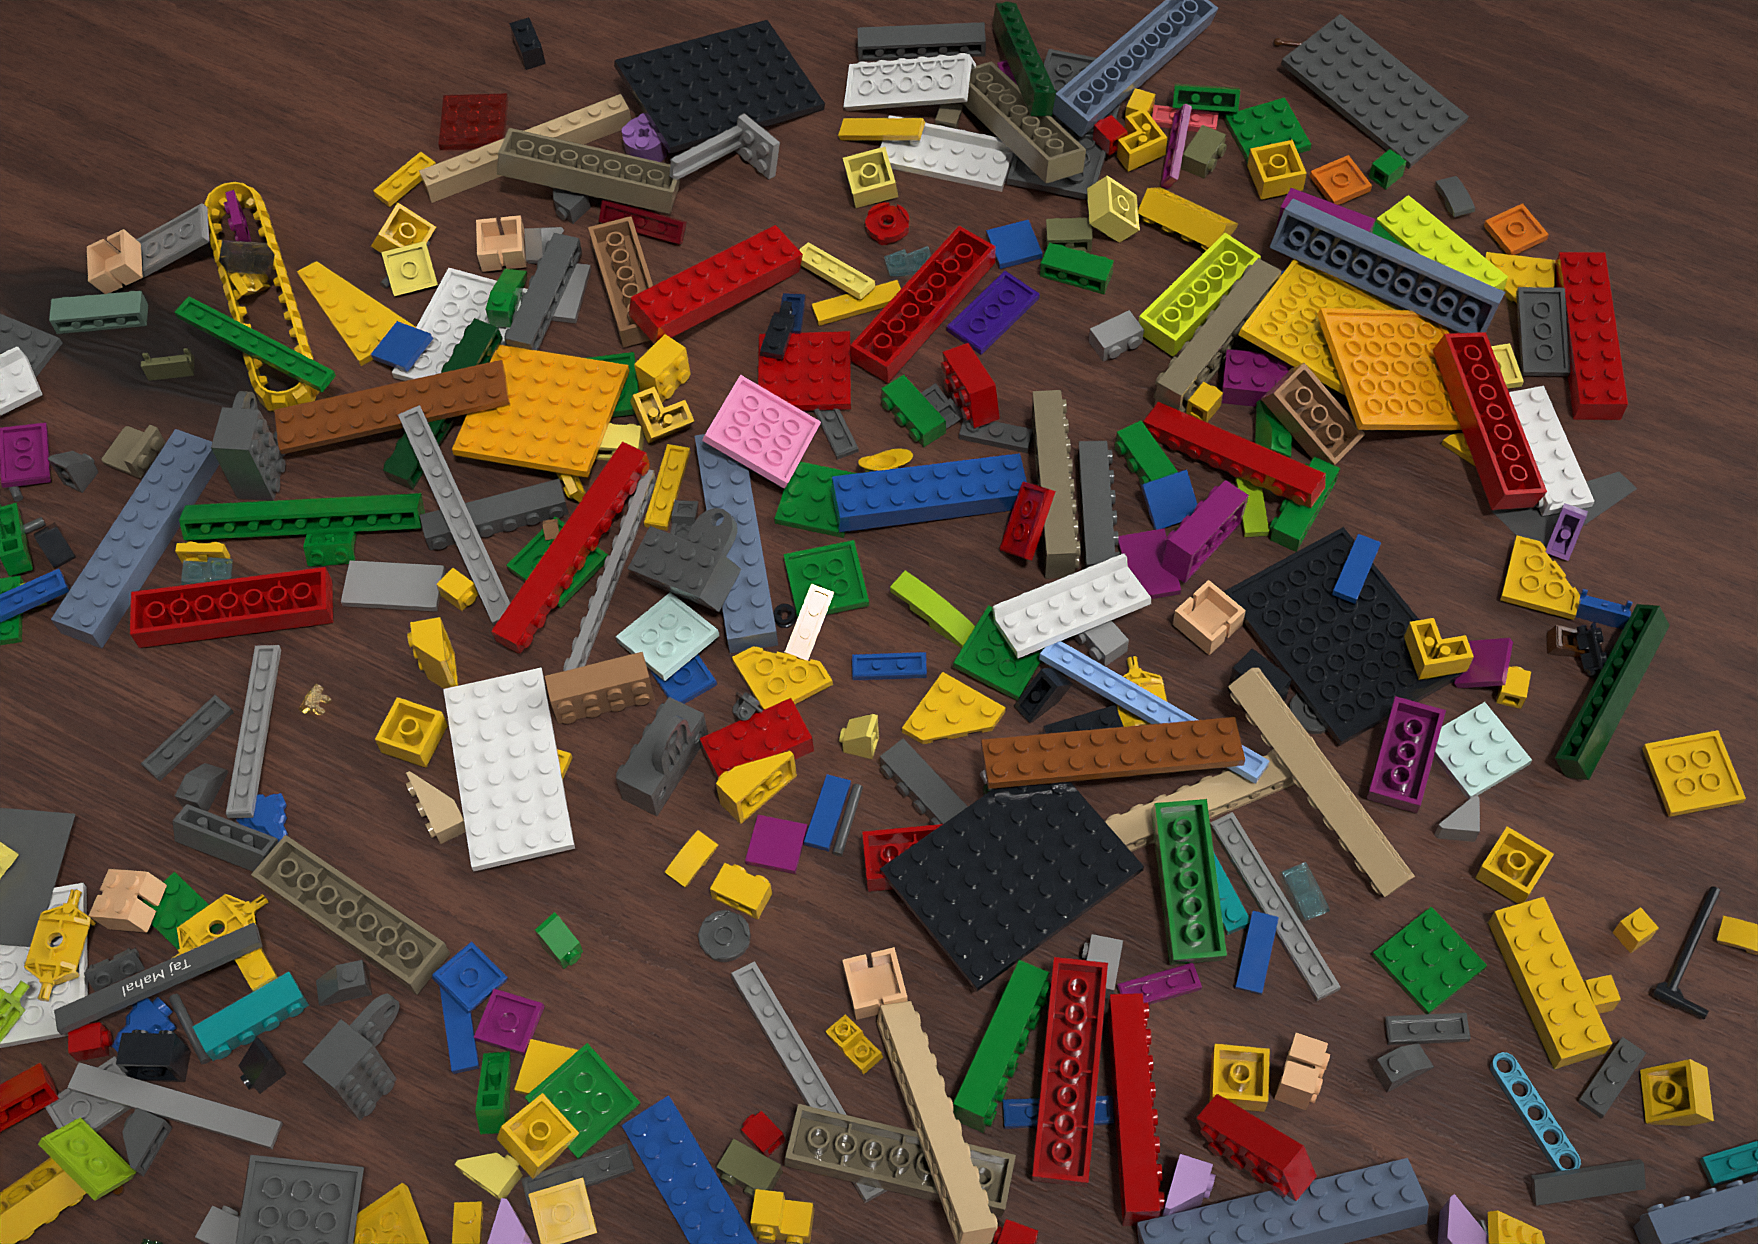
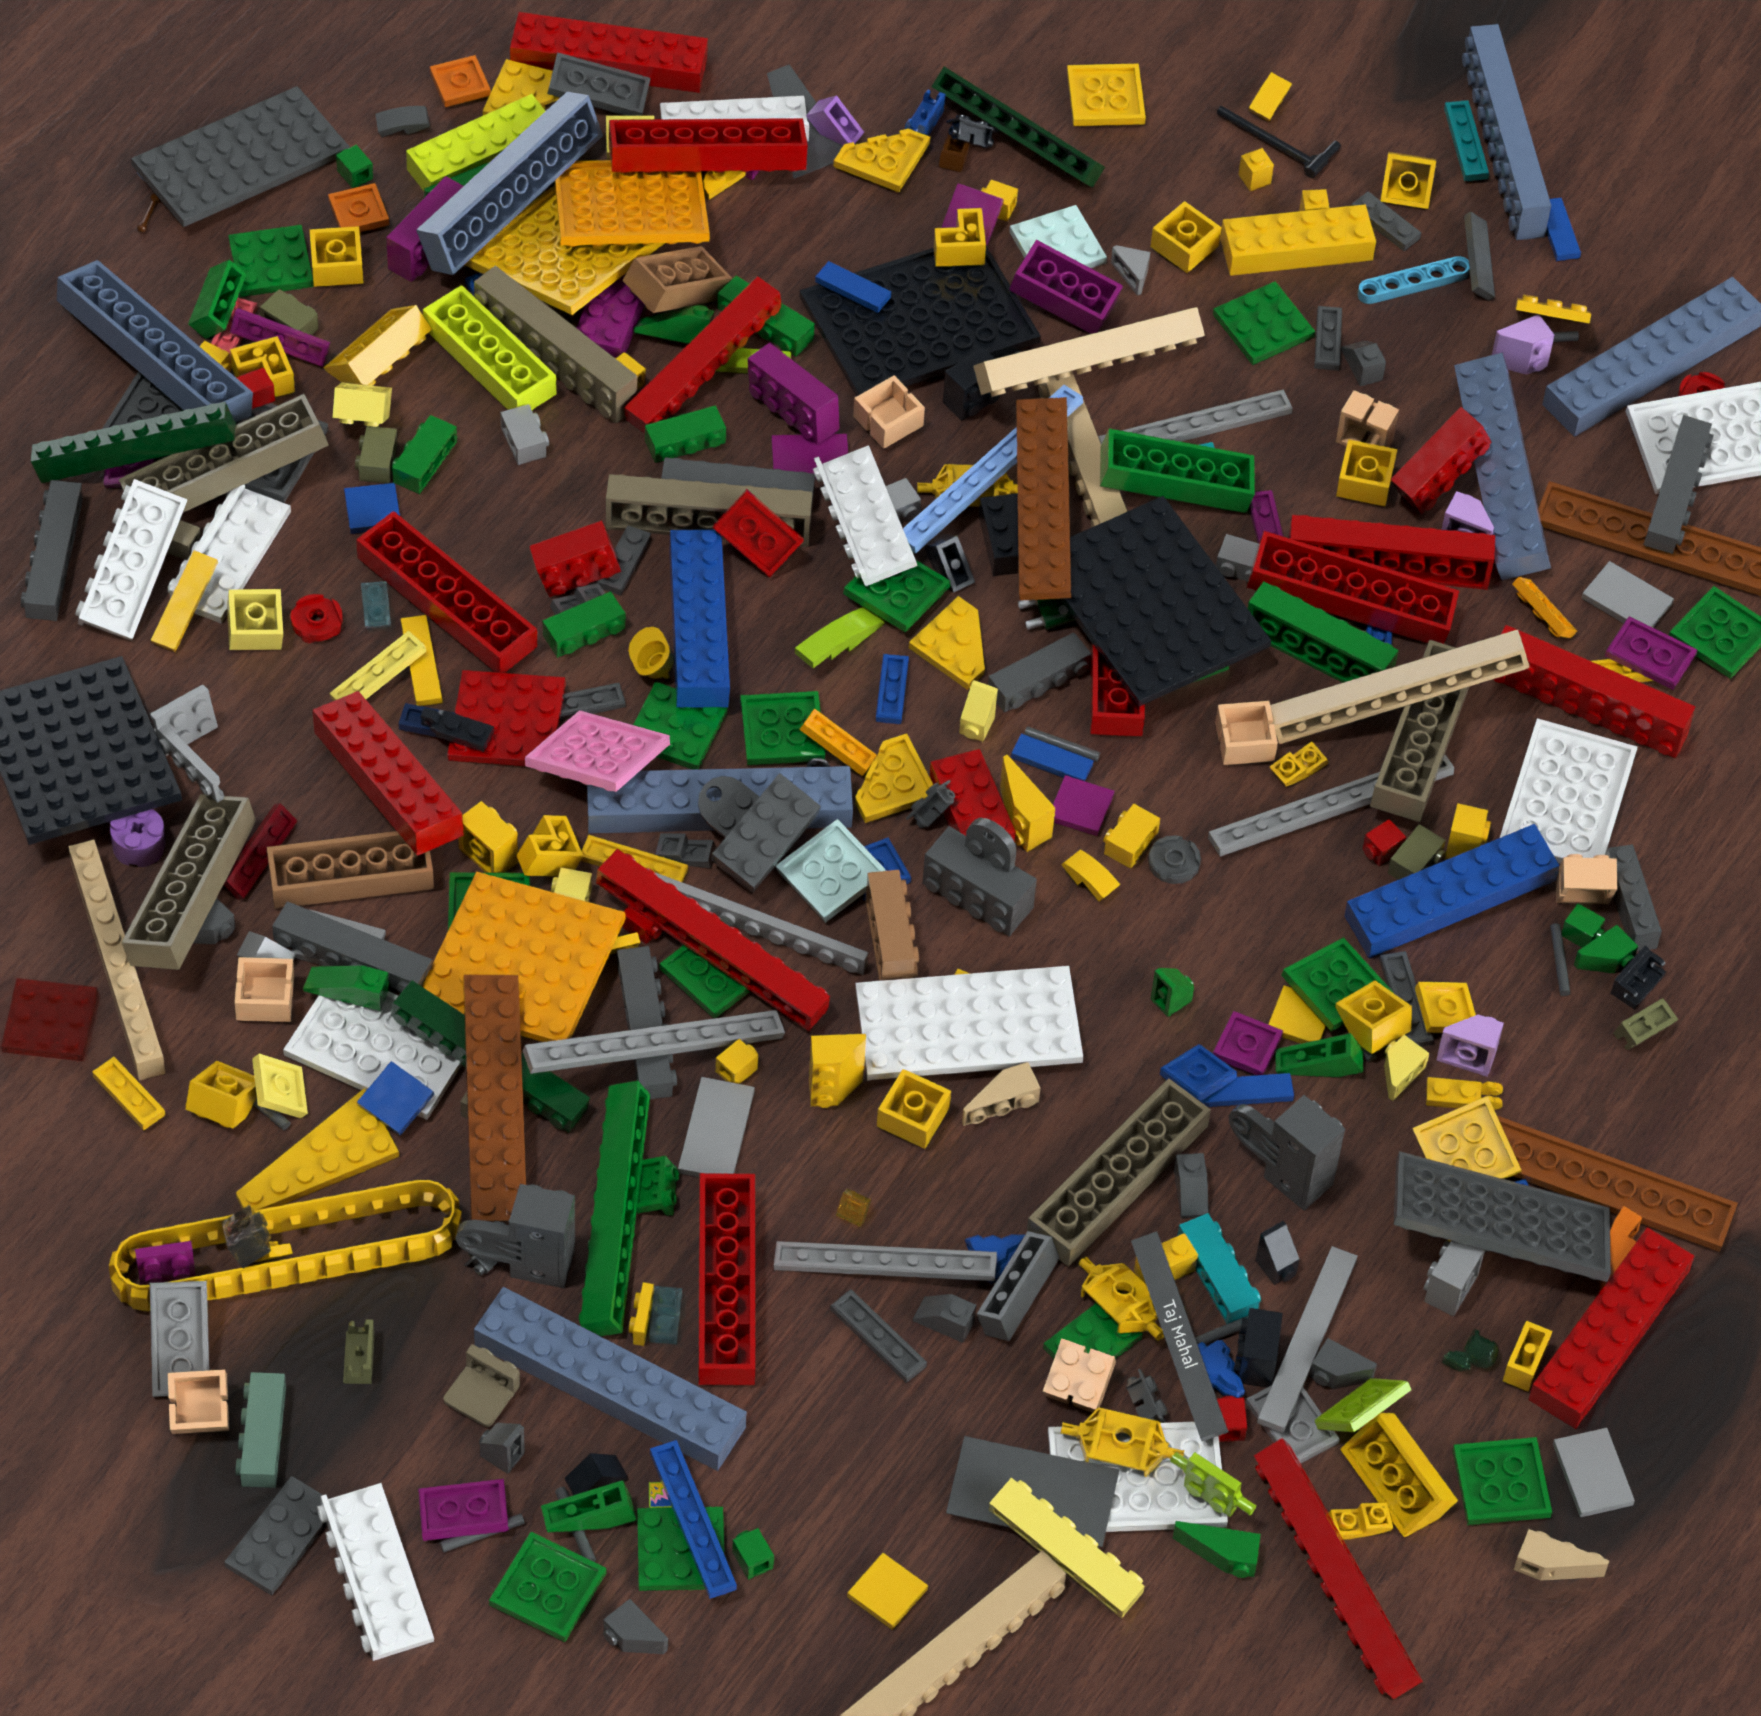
camera: 90 degrees left, 5 degrees down
(255, 344) = (383, 1227): green plate -> none
(551, 528) = (676, 965): medium nougat piece -> none
(993, 312) = (462, 538): dark purple tile -> none
(1169, 499) = (743, 420): blue tile -> none
(1257, 952) = (1243, 441): blue tile -> none
(1305, 891) = (1186, 394): clear light blue slope -> none

